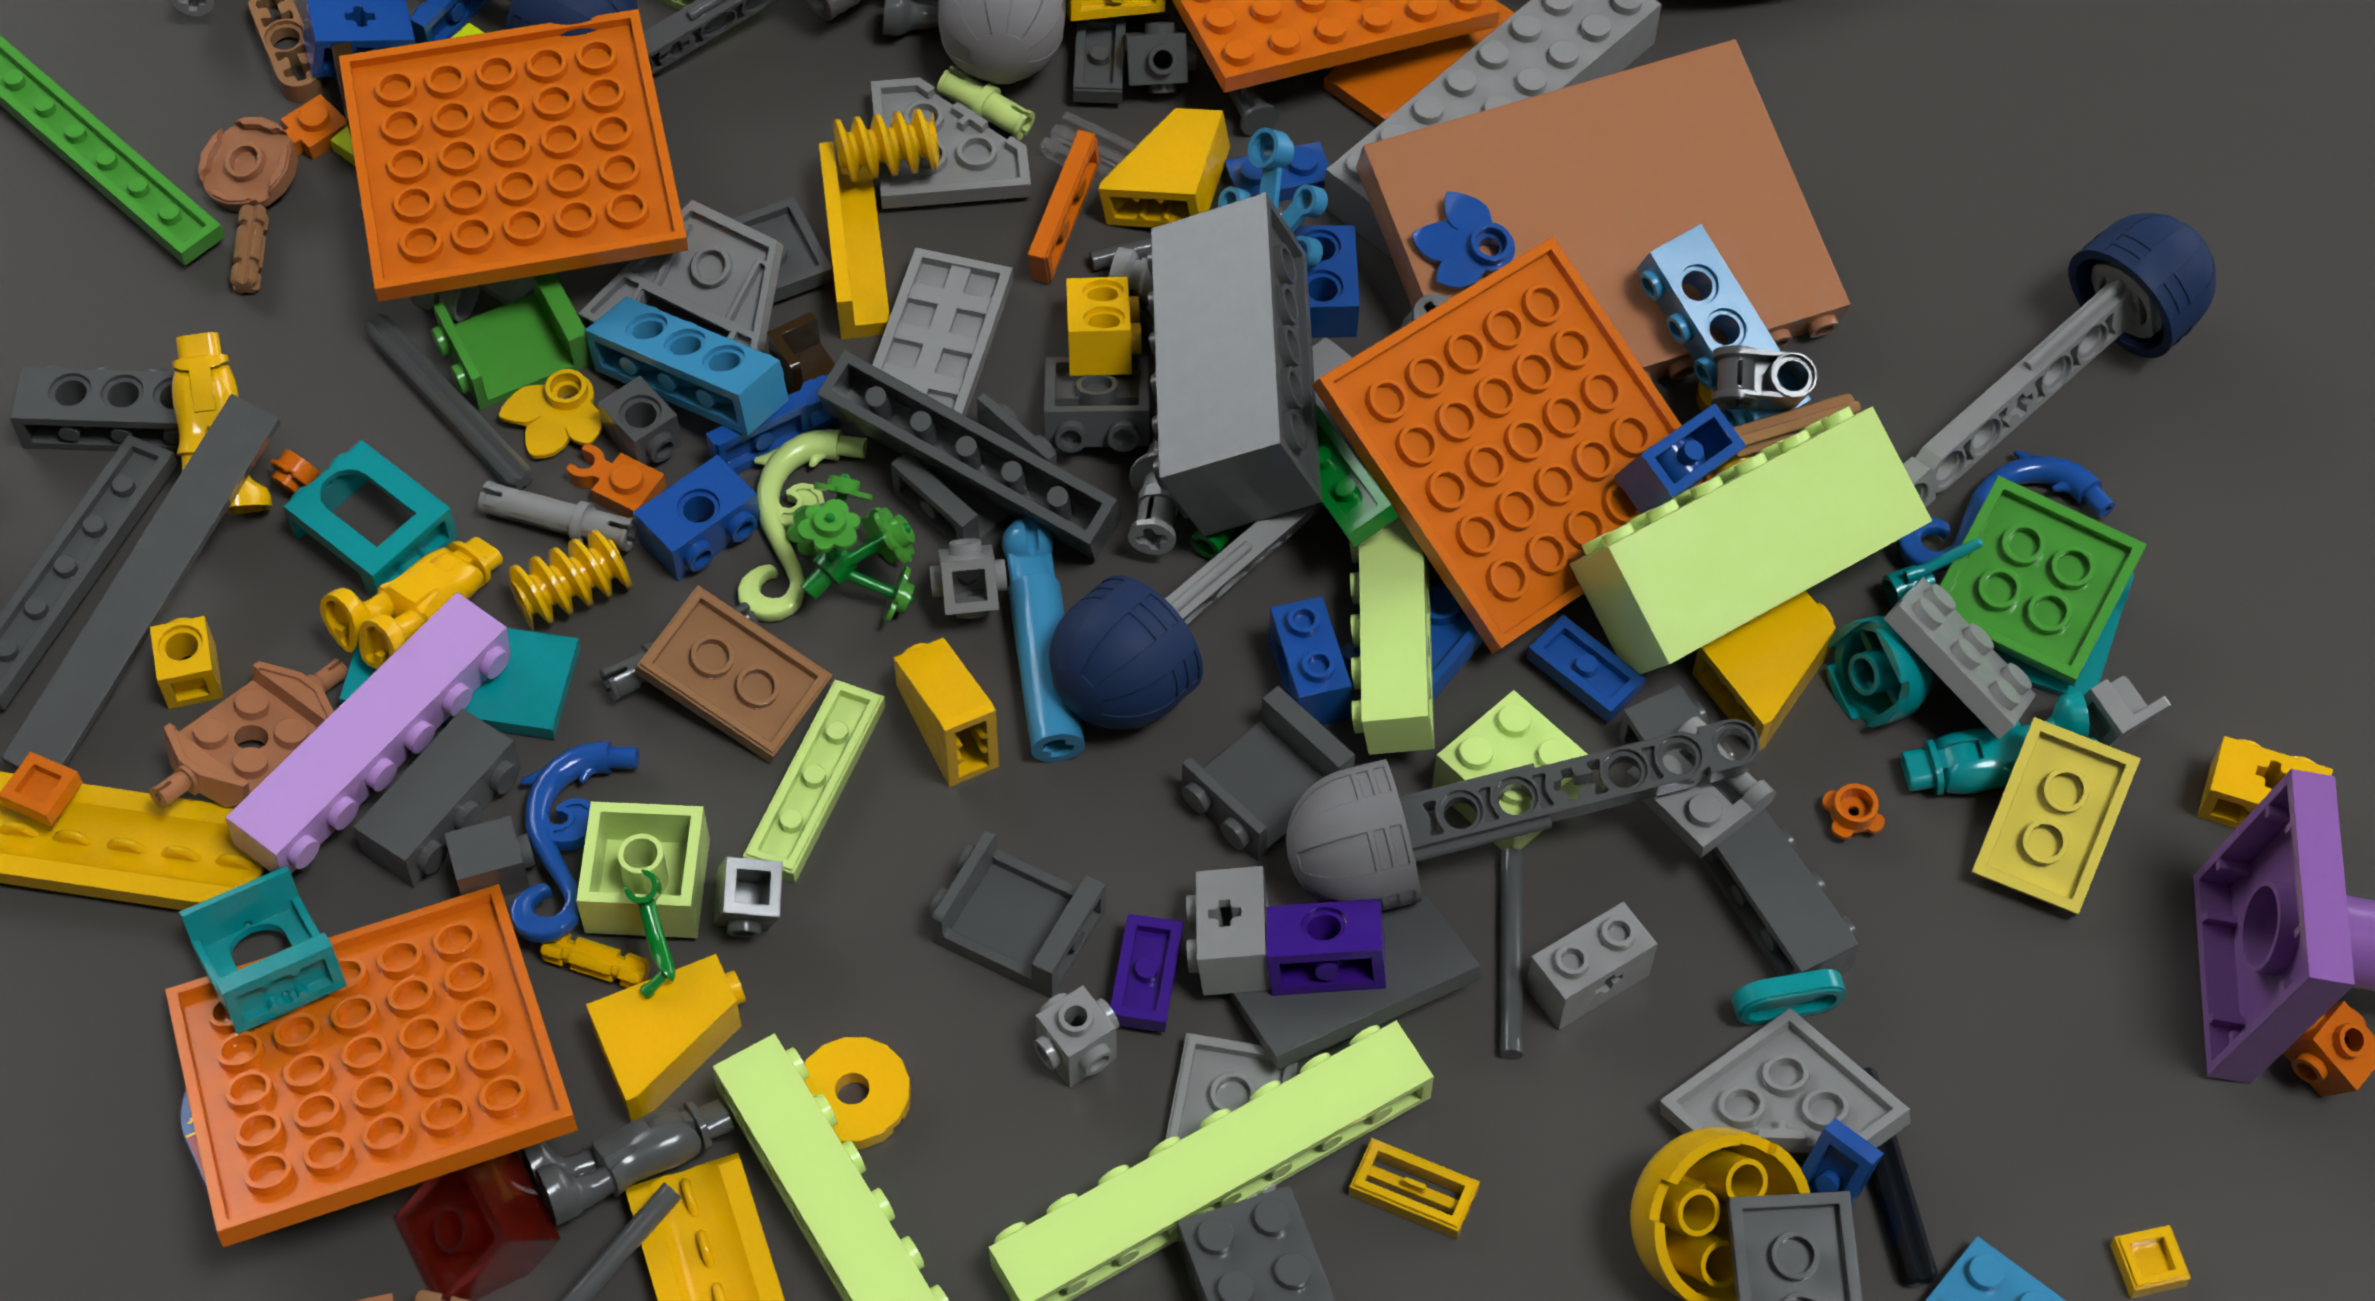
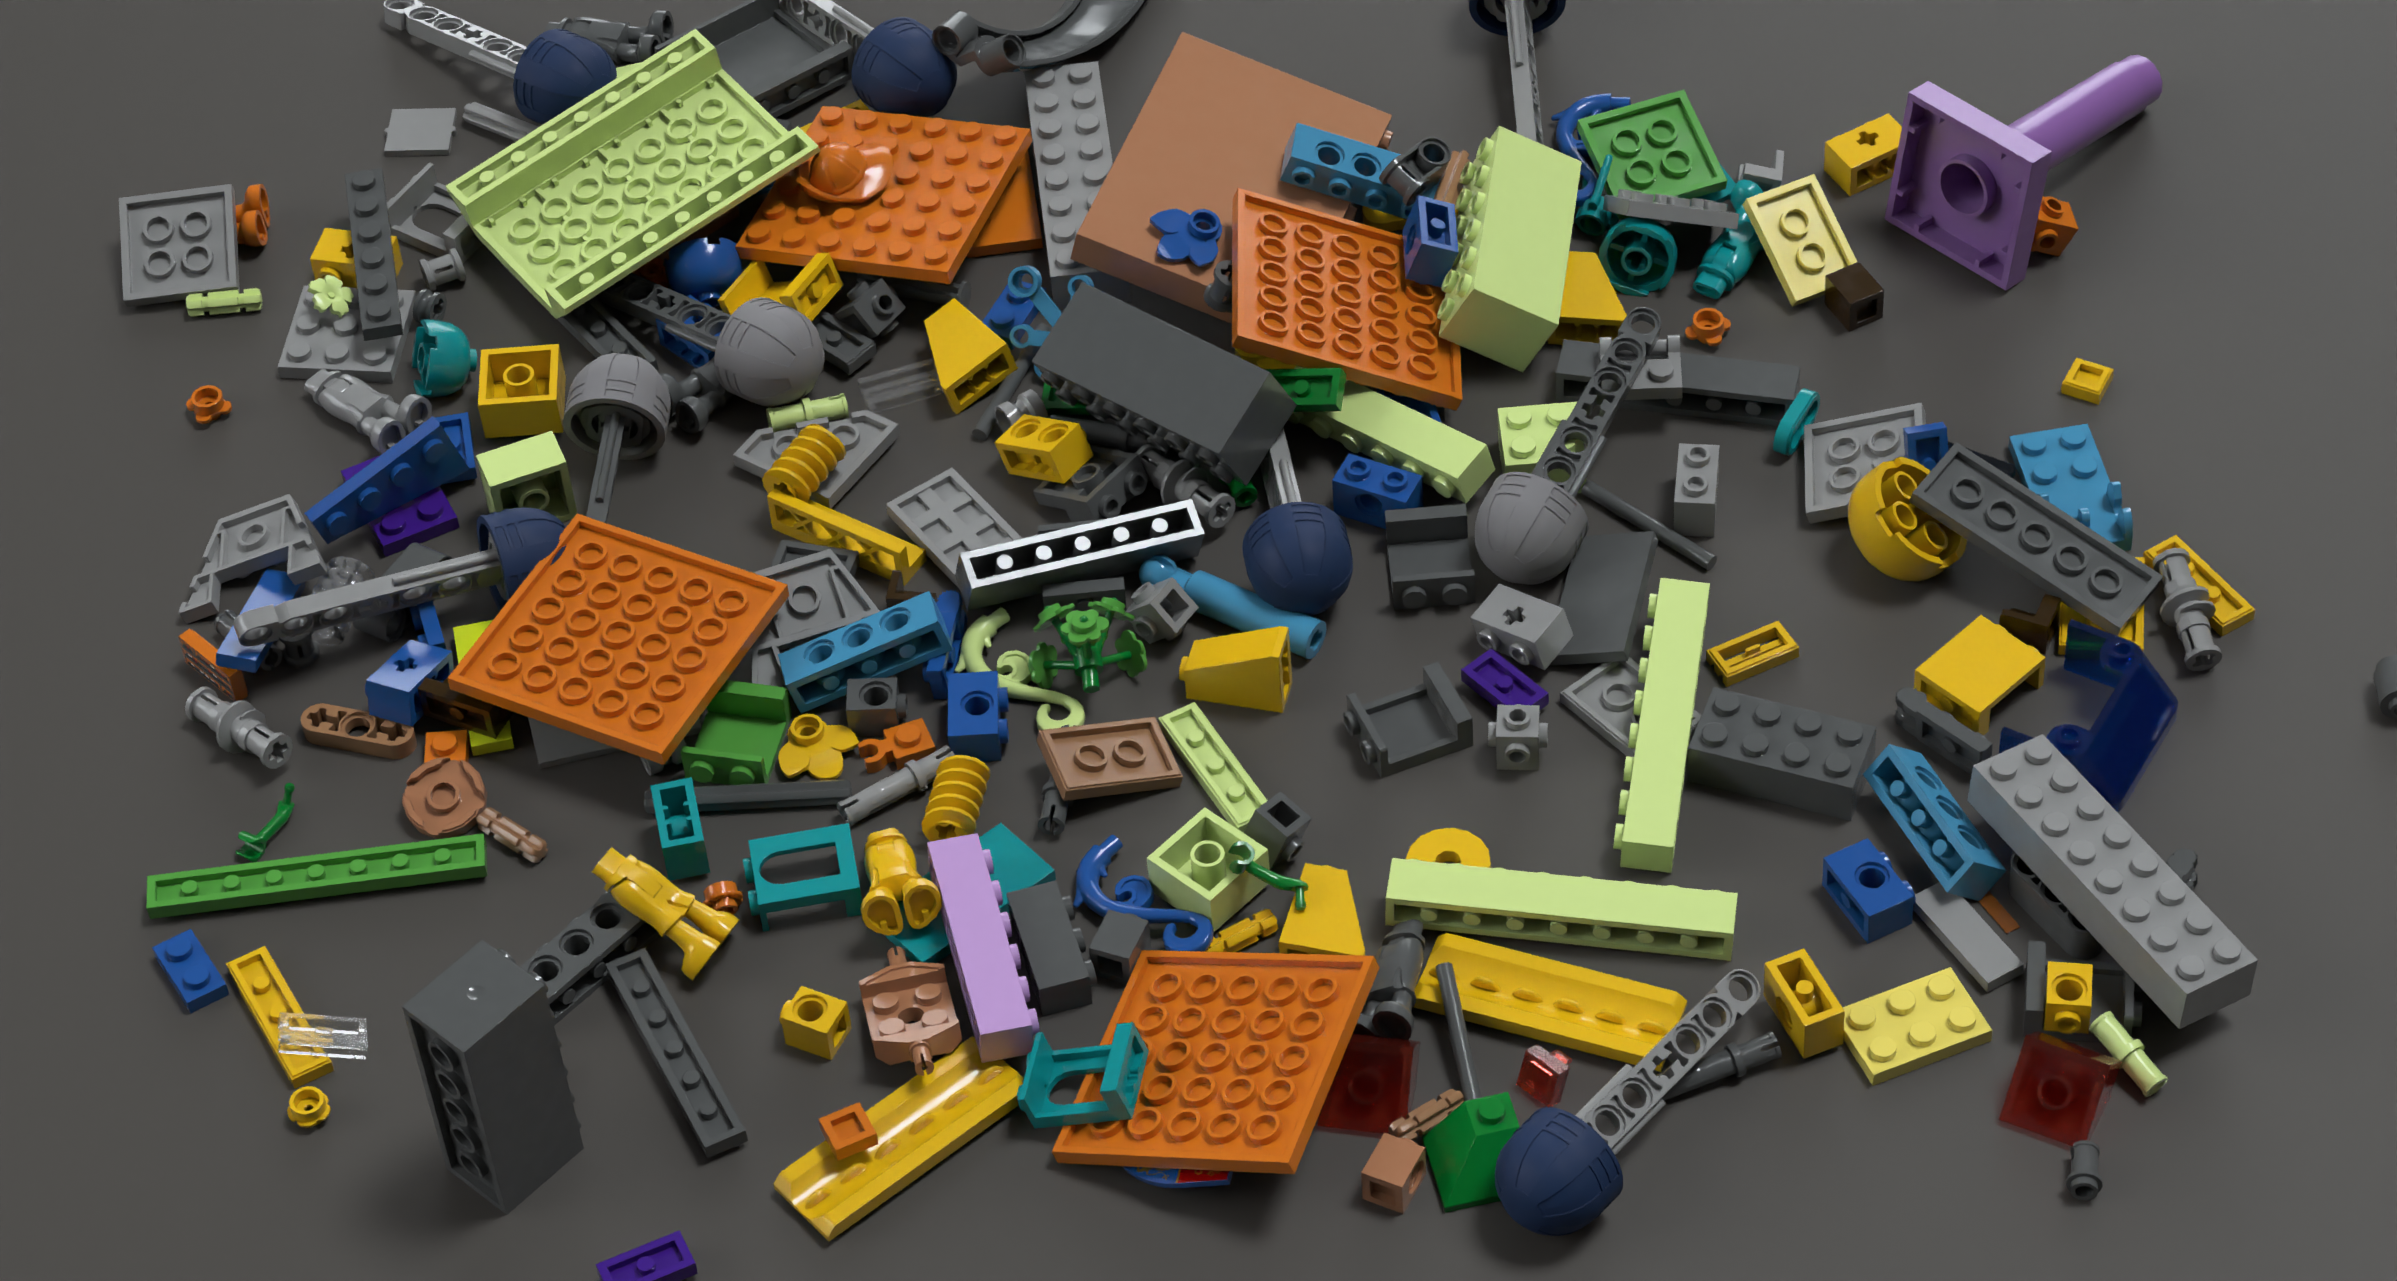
camera: 45 degrees left, 10 degrees down
(83, 63) = (256, 844): none -> green piece
(144, 584) = (747, 1004): dark grey tile -> none
(340, 374) = (680, 829): none -> teal brick
(1064, 207) = (935, 416): orange tile -> none
(1325, 947) = (1582, 583): dark purple brick -> none
(1585, 668) = (1503, 381): blue plate -> none
(2034, 925) = (1854, 296): none -> dark brown panel

